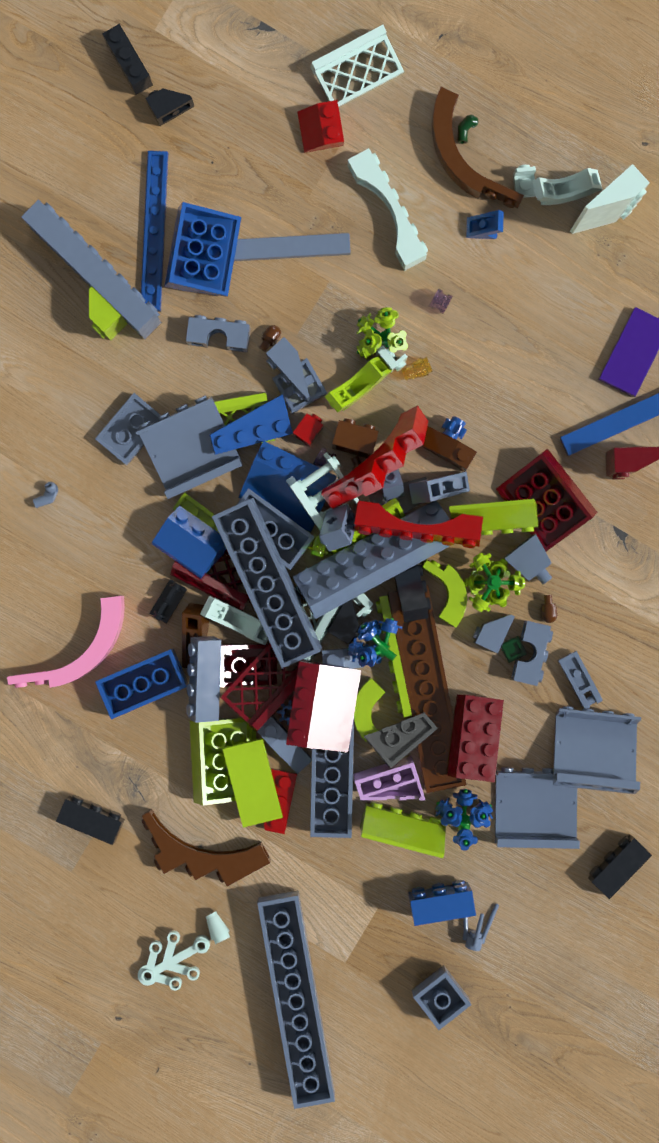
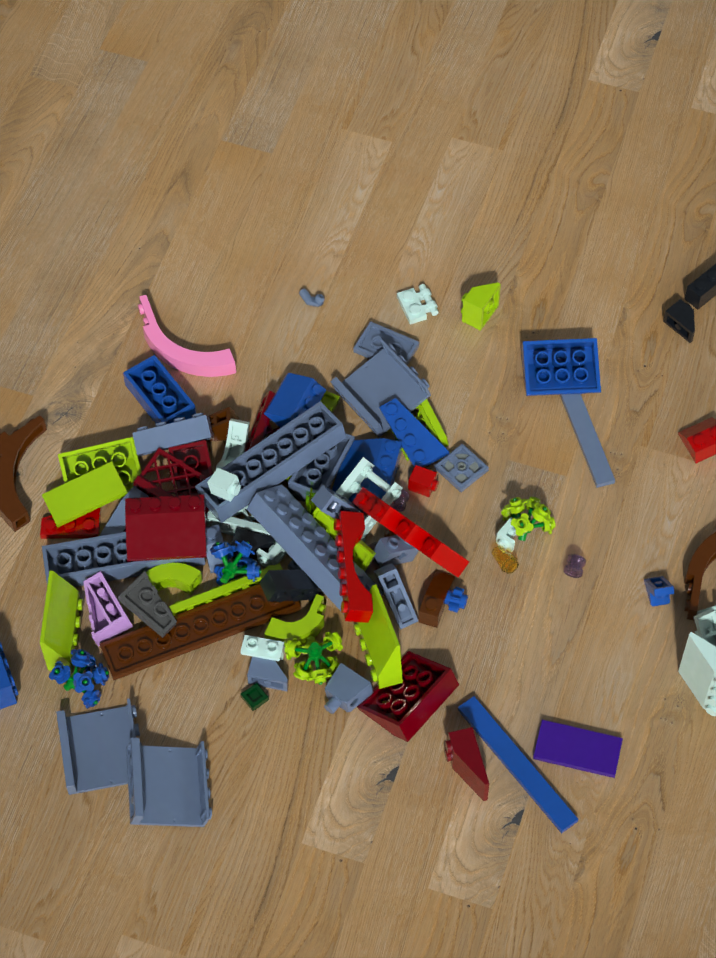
camera: 75 degrees right, 30 degrees down
(79, 389) = (412, 306): none -> light aqua plate
(89, 266) = (516, 289): sand blue brick -> none
(90, 819) = (29, 382): black brick -> none
(154, 227) = (592, 329): blue tile -> none
(168, 601) = (238, 404): black hinge -> none
(201, 330) = (489, 382): sand blue arch -> none
(270, 337) = (500, 437): reddish brown cylinder -> none
(287, 361) = (477, 450): sand blue slope -> none
(296, 638) = (224, 484): none -> light aqua brick
(355, 438) = (425, 509): reddish brown brick -> none
(358, 385) = (473, 513): lime arch -> none
(368, 174) = (619, 527): light aqua arch -> none
(472, 632) = (263, 648): none -> light aqua bracket
(475, 738) = (160, 671): dark red brick -> none
(538, 636) = (269, 714): sand blue arch -> none
(548, 610) = (300, 719): reddish brown cylinder -> none
(579, 679) = (236, 761): sand blue plate -> none
(619, 866) = (54, 833): black brick -> none

